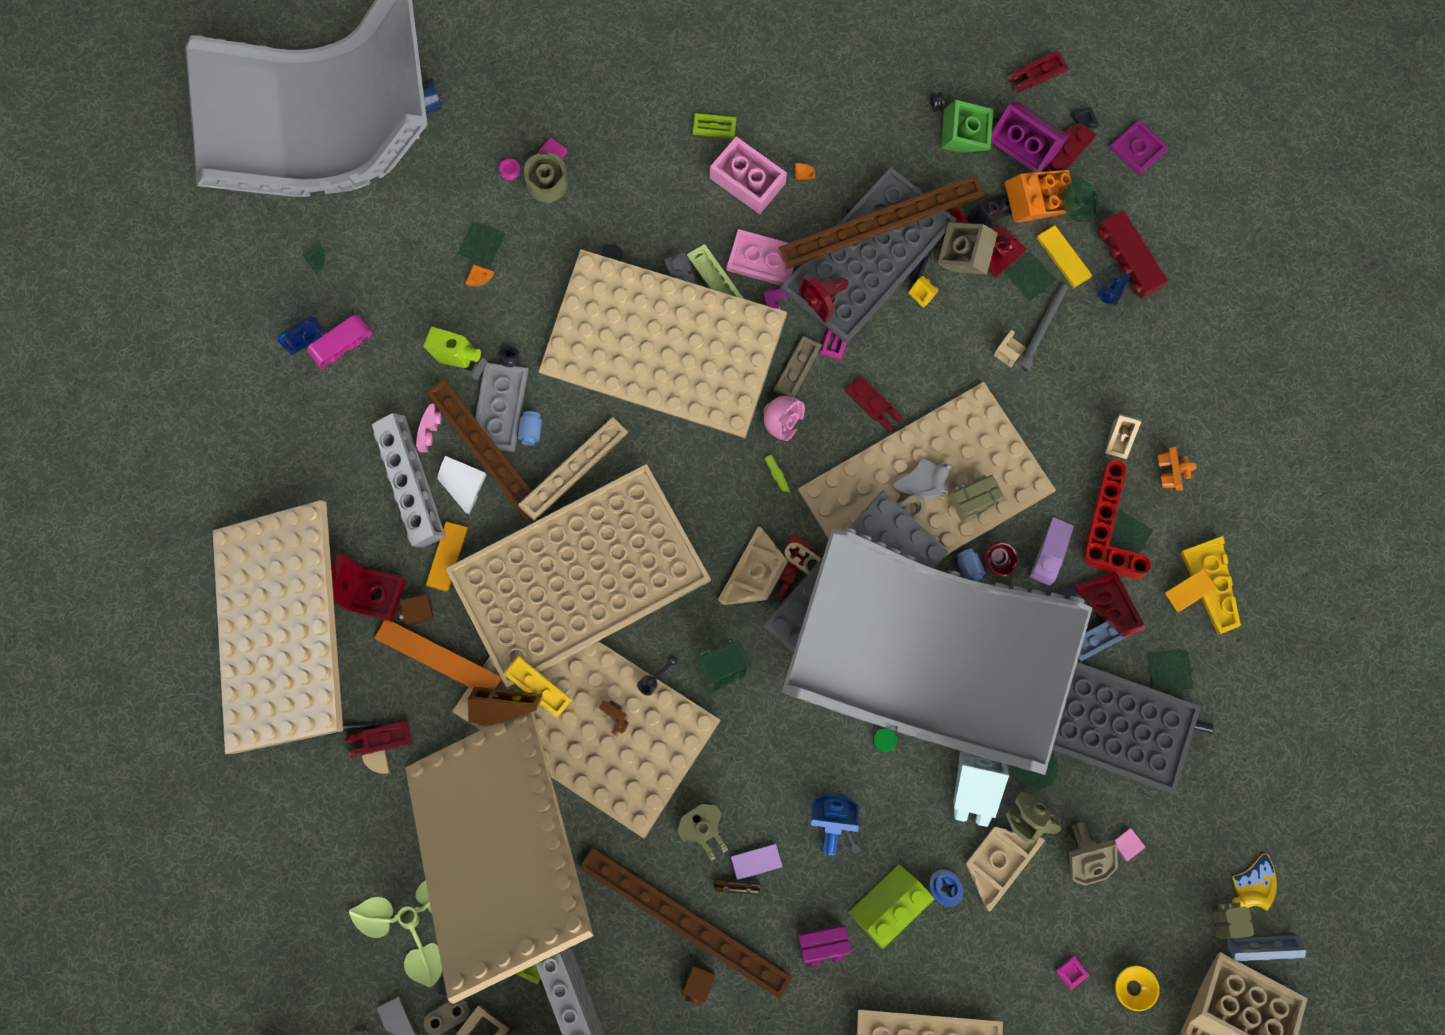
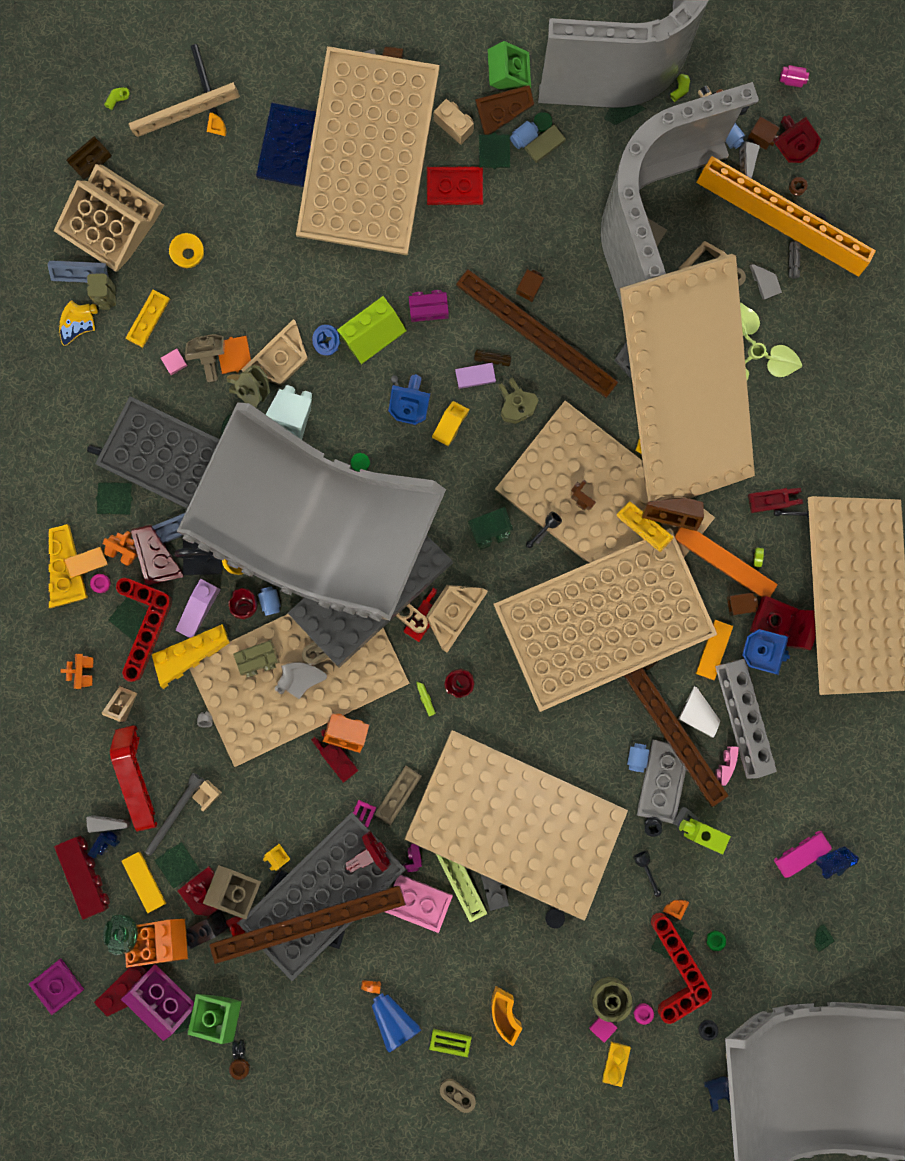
camera: 175 degrees left, 10 degrees up
(377, 762) = (777, 481): tan tile -> none
(387, 553) = (766, 651): none -> blue piece
(398, 664) = (758, 557): none -> lime tile
(433, 247) = (716, 940): none -> green tile
(436, 153) = (708, 1036): none -> black plate
(468, 215) = (684, 967): none -> red beam
(517, 319) = (643, 859): none -> black hinge
(536, 118) = (616, 1064): none -> yellow tile
(573, 469) = (602, 717): tan tile -> none
(660, 151) = (503, 1017): none -> light orange brick
(702, 77) = (456, 1096): none -> dark tan plate
(747, 487) = (466, 680): none -> dark red hair
(748, 175) = (424, 986): bright pink brick -> none
(776, 137) = (393, 1022): none -> blue cone
(781, 797) = (450, 423): none -> yellow slope
(783, 414) = (417, 748): bright pink cylinder -> none
(864, 426) = (346, 732): none -> orange brick
(933, 84) = (239, 1069): none -> reddish brown tile
(1024, 430) = (205, 717): none -> light grey hinge
(1039, 71) = (136, 1074): dark red hinge -> none
(1054, 861) = (235, 355): none -> orange piece
(1063, 493) = (176, 659): none -> yellow wing
(1072, 972) = (235, 269): dark pink tile -> none
(1086, 117) = (101, 1021): black tile -> none
(1100, 359) = (130, 778): none -> red beam
(1116, 310) = (100, 823): none -> light grey slope
(1151, 614) = (122, 544): none -> orange hips
(1169, 570) = (100, 583): none -> dark pink tile
(1169, 897) = (147, 318): none -> yellow tile

